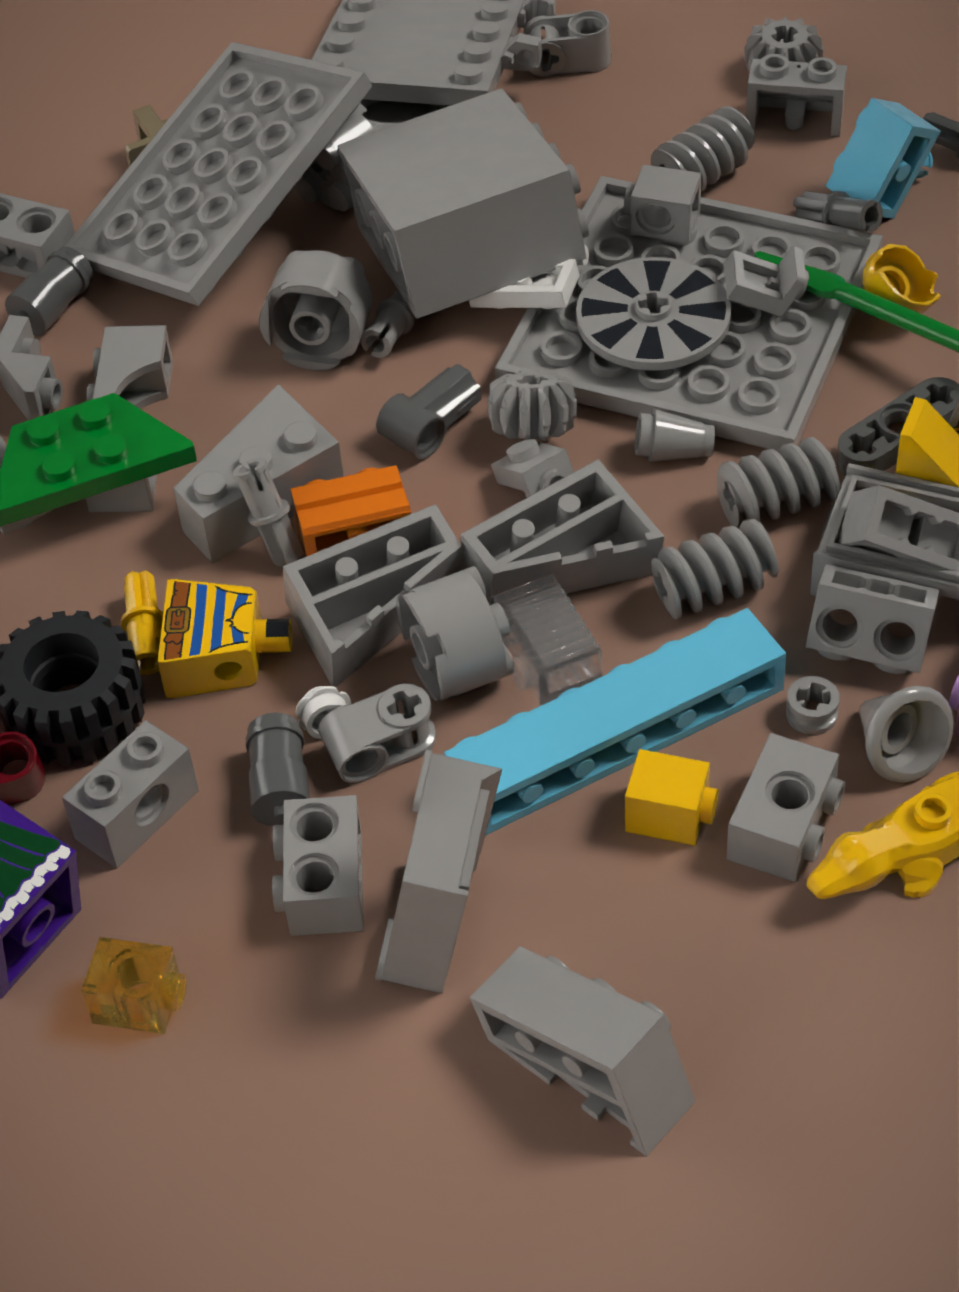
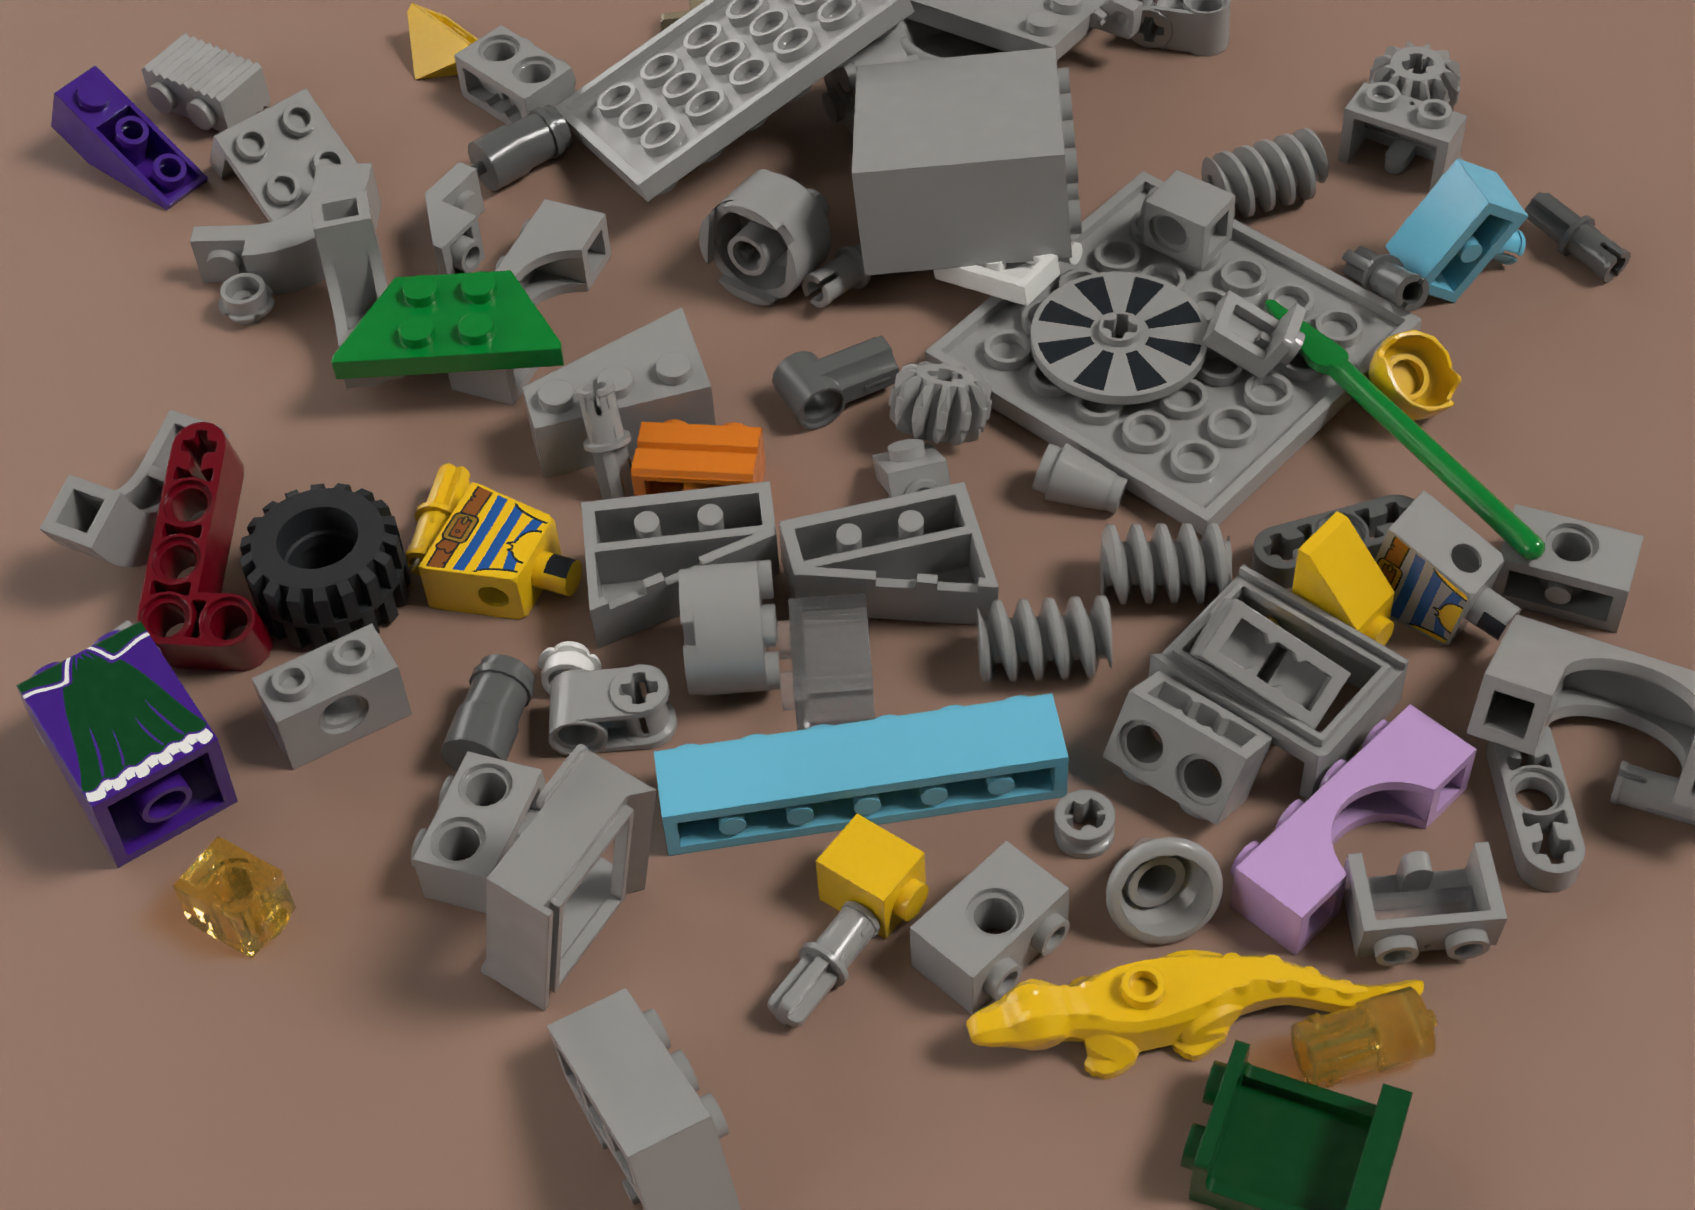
camera: 20 degrees right, 0 degrees up
(661, 879) = (823, 964): none -> light grey axle

